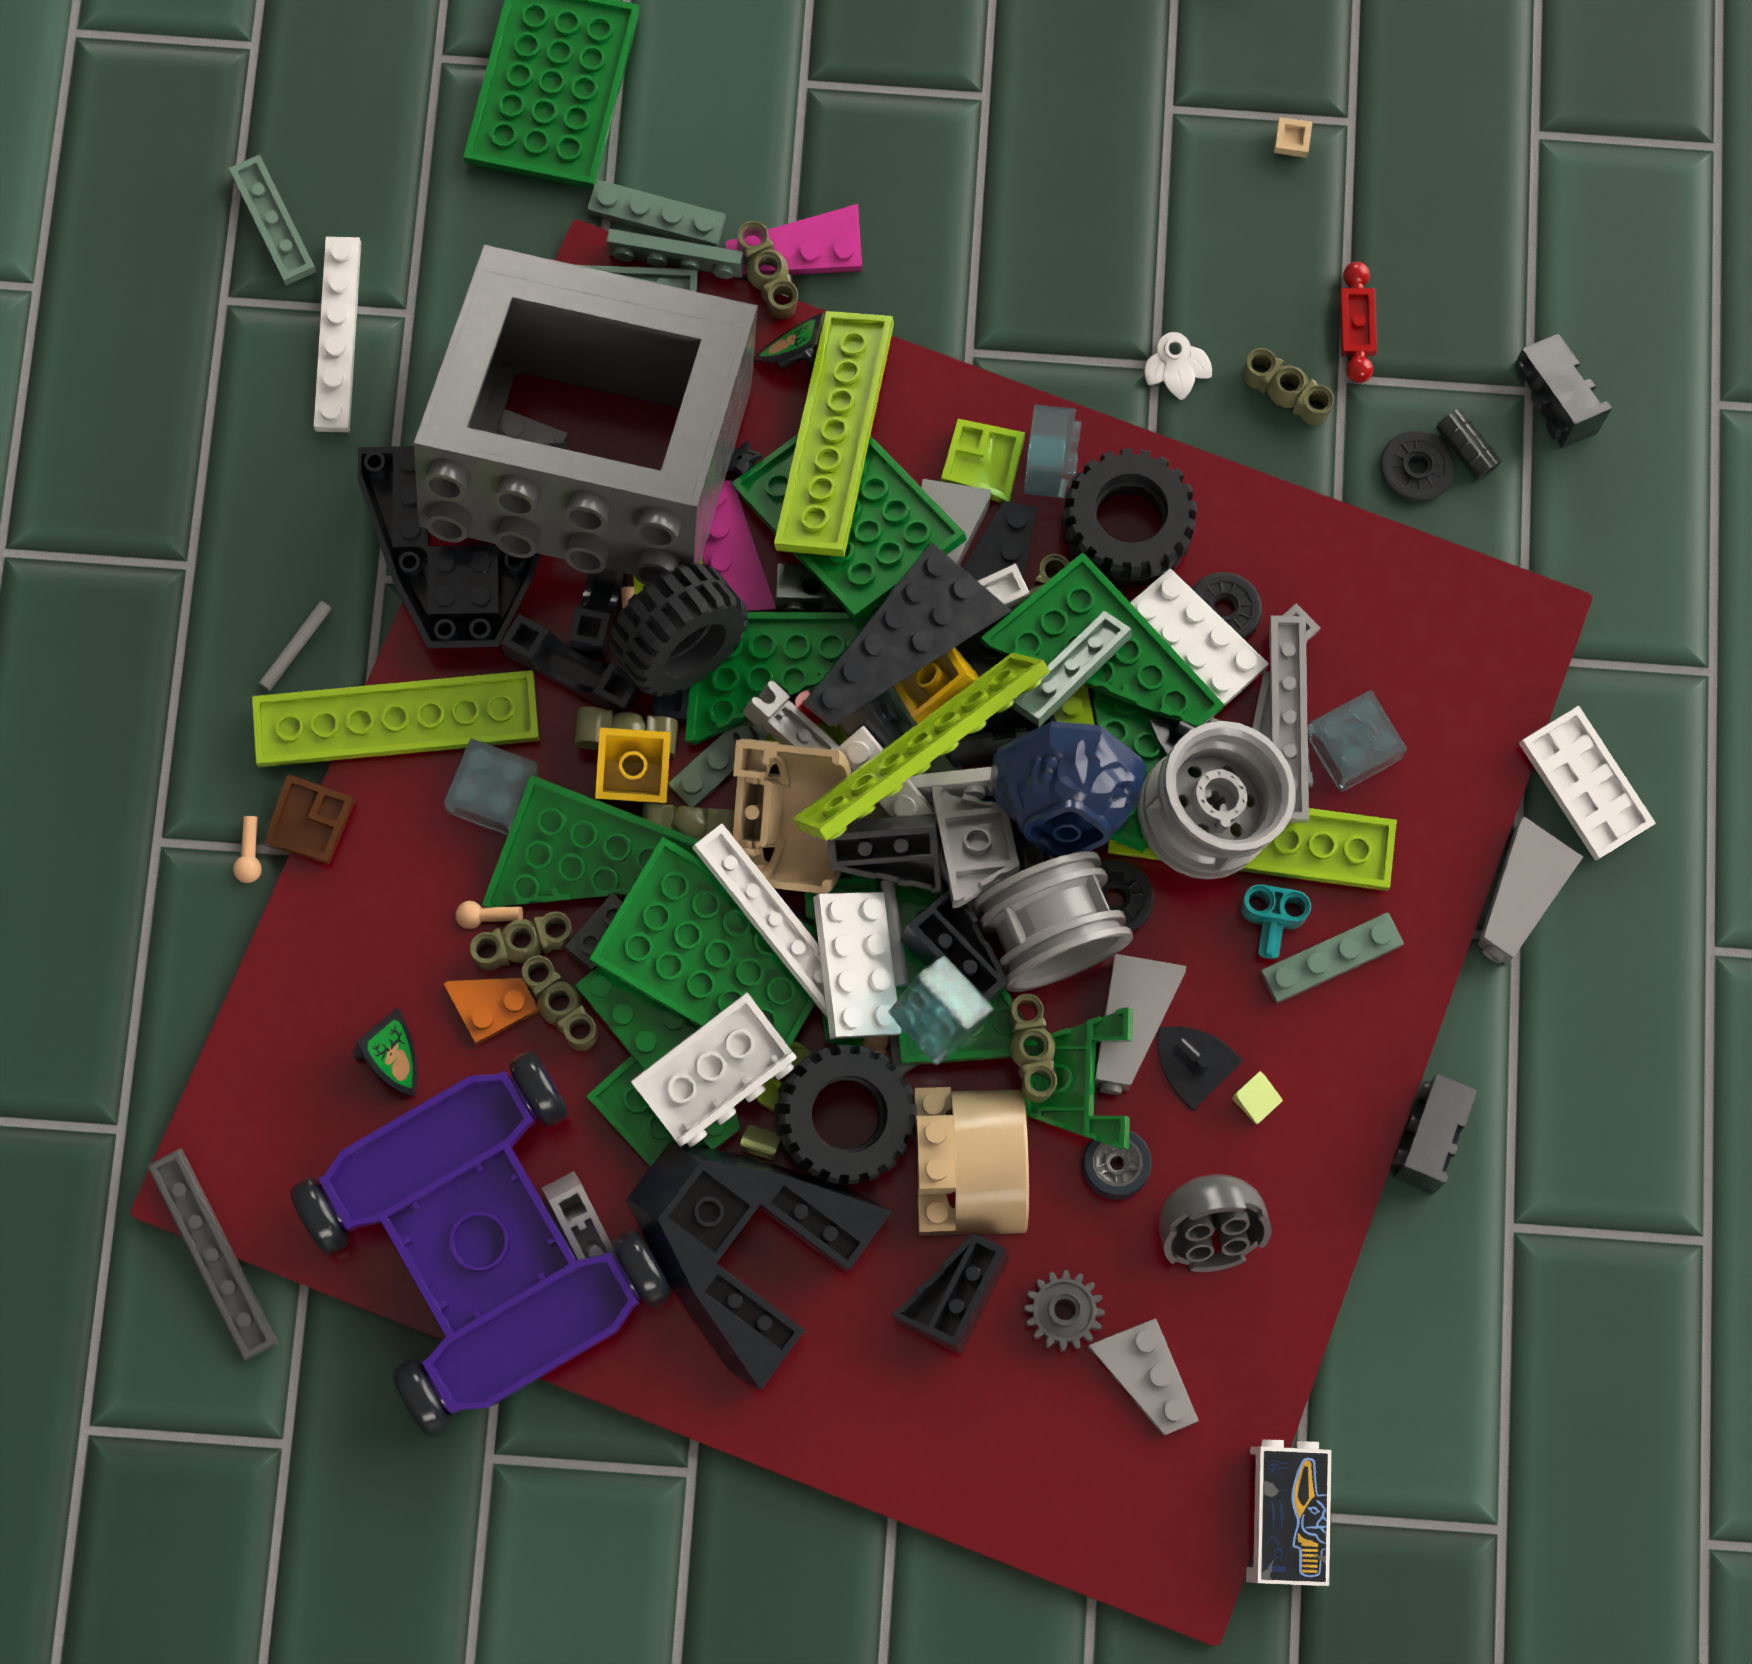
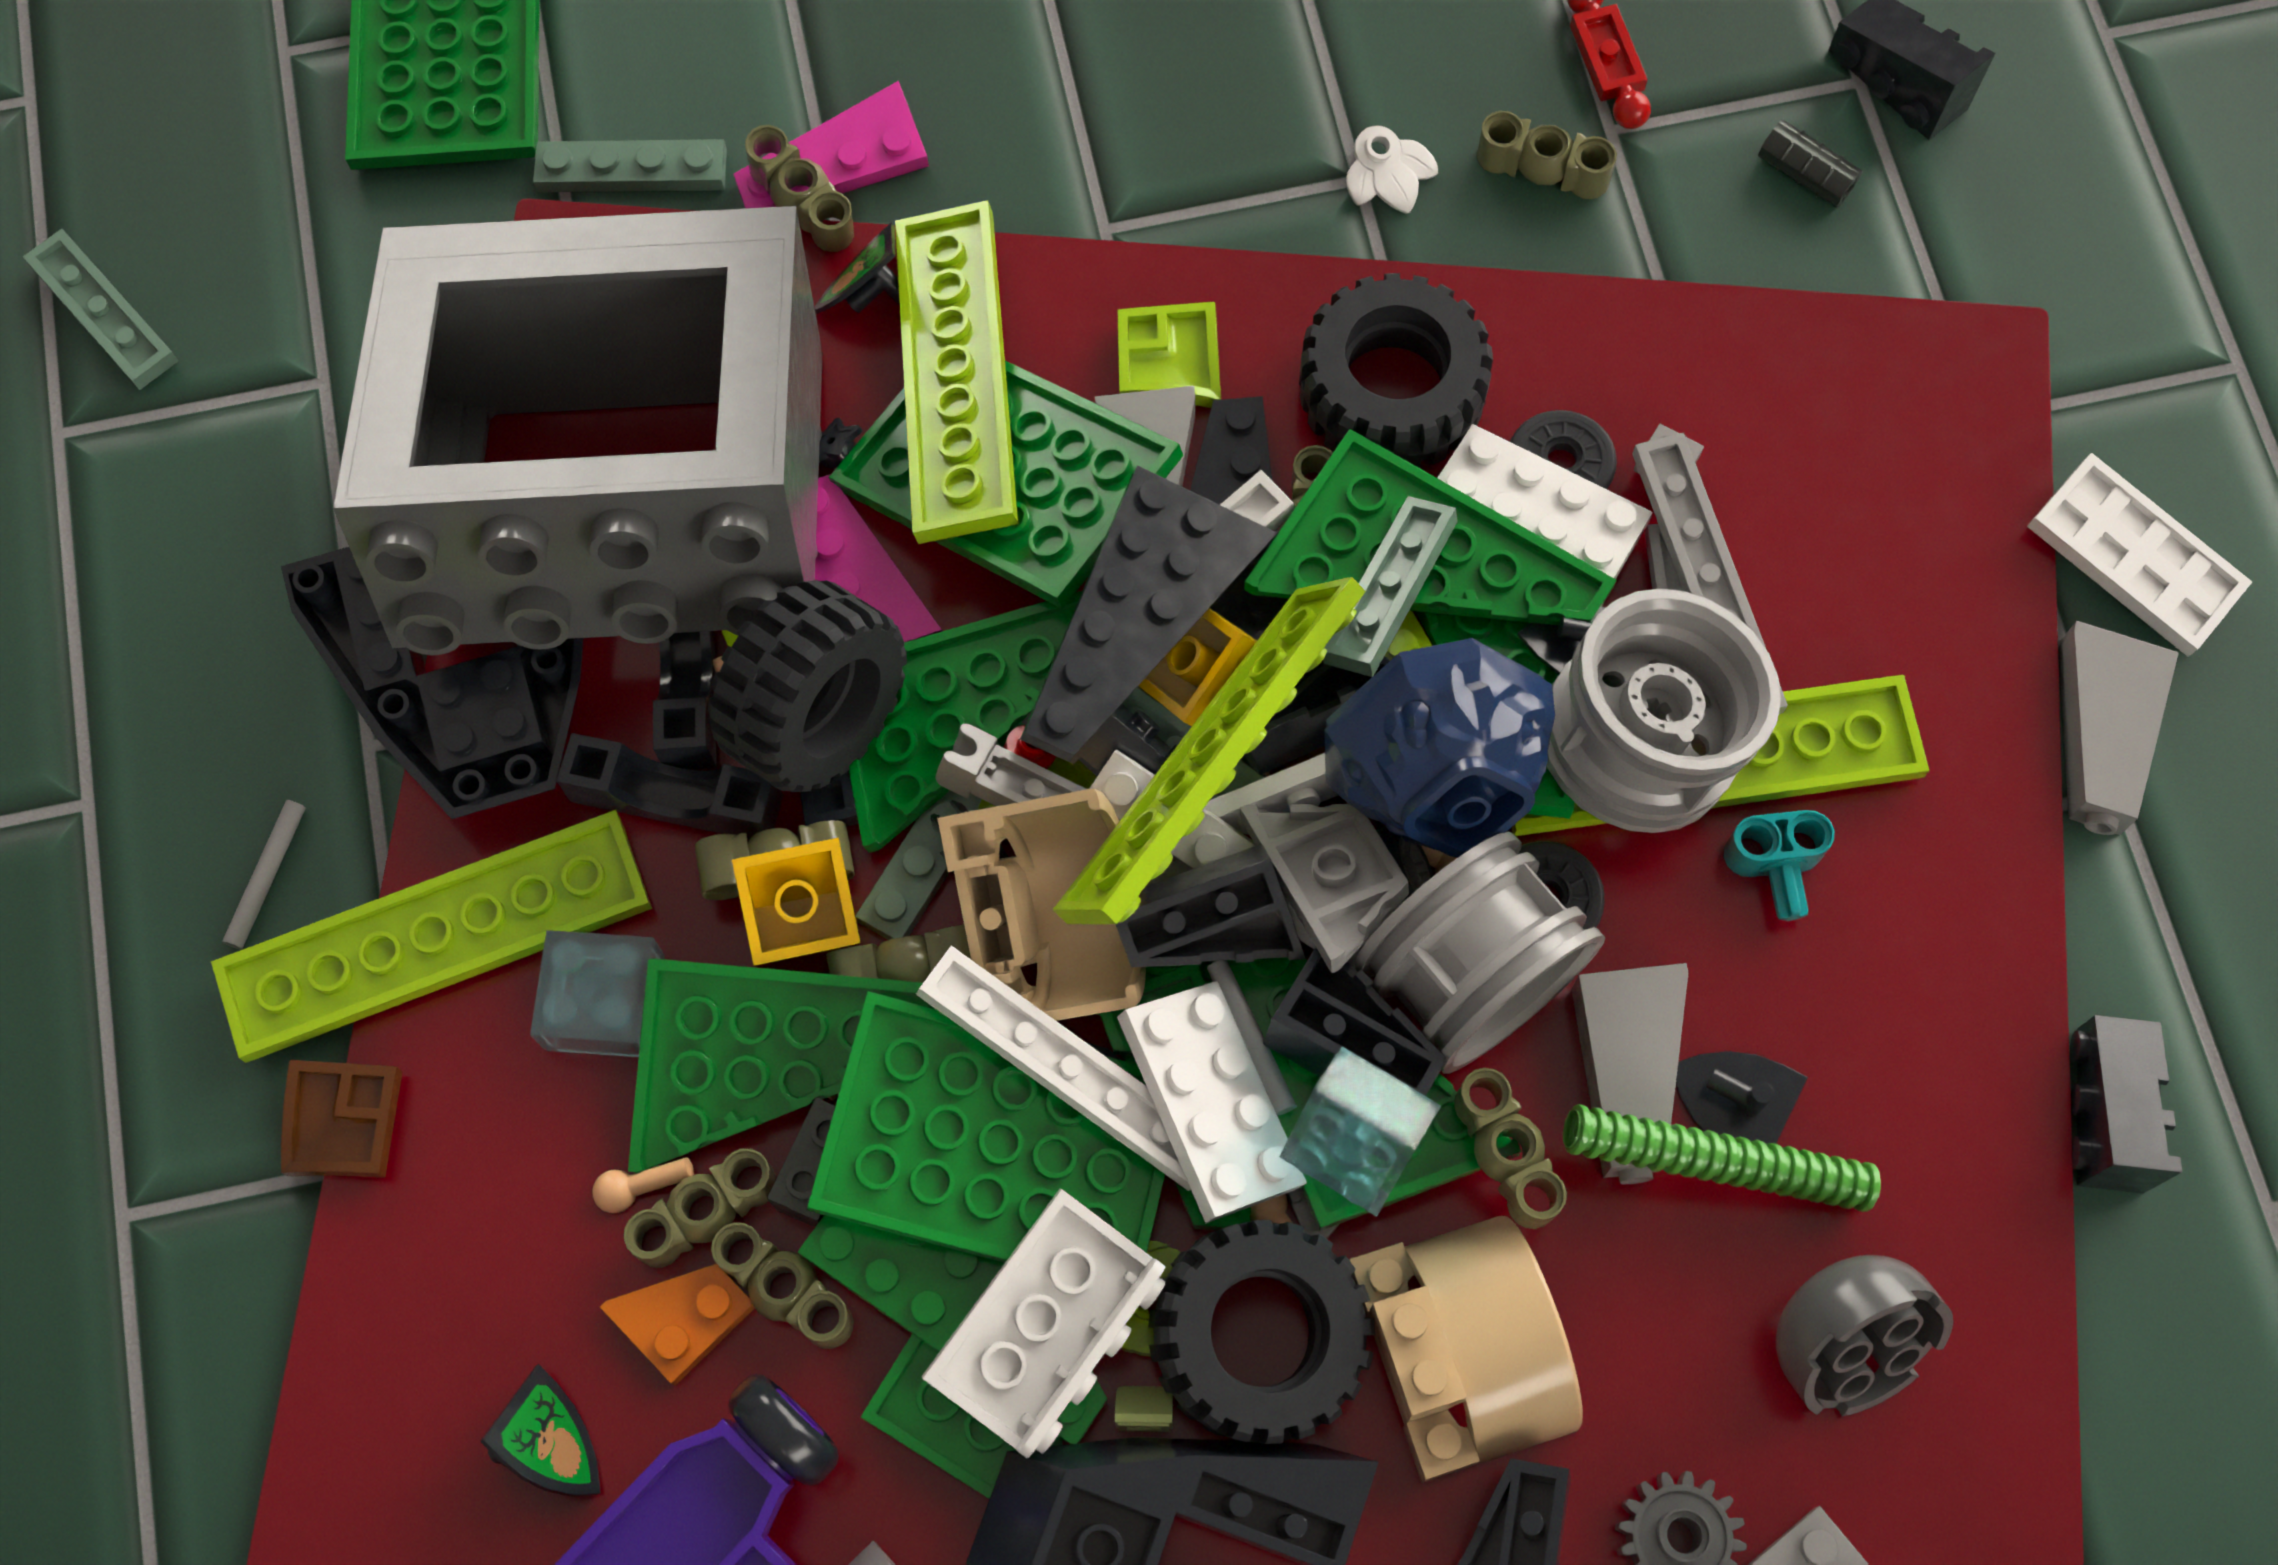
camera: 10 degrees left, 5 degrees down
(248, 867) = (266, 1215): light nougat bar -> none
(337, 334) = (227, 436): white plate -> none
(686, 255) = (686, 194): sand green plate -> none
(802, 591) = (972, 593): pearl dark grey brick -> none
(1052, 451) = (1260, 312): clear light blue brick -> none
(1074, 1065) = (1593, 1215): green wing -> none
(1117, 1183) = (1705, 1270): wheel -> none
(1165, 1093) = (1721, 1158): none -> bright green piece
(1257, 1098) = (1849, 1125): yellowish green slope -> none
(1332, 958) = (1880, 894): sand green plate -> none
(1356, 741) = (1810, 582): clear light blue brick -> none
(1417, 446) = (1746, 236): black wheel -> none

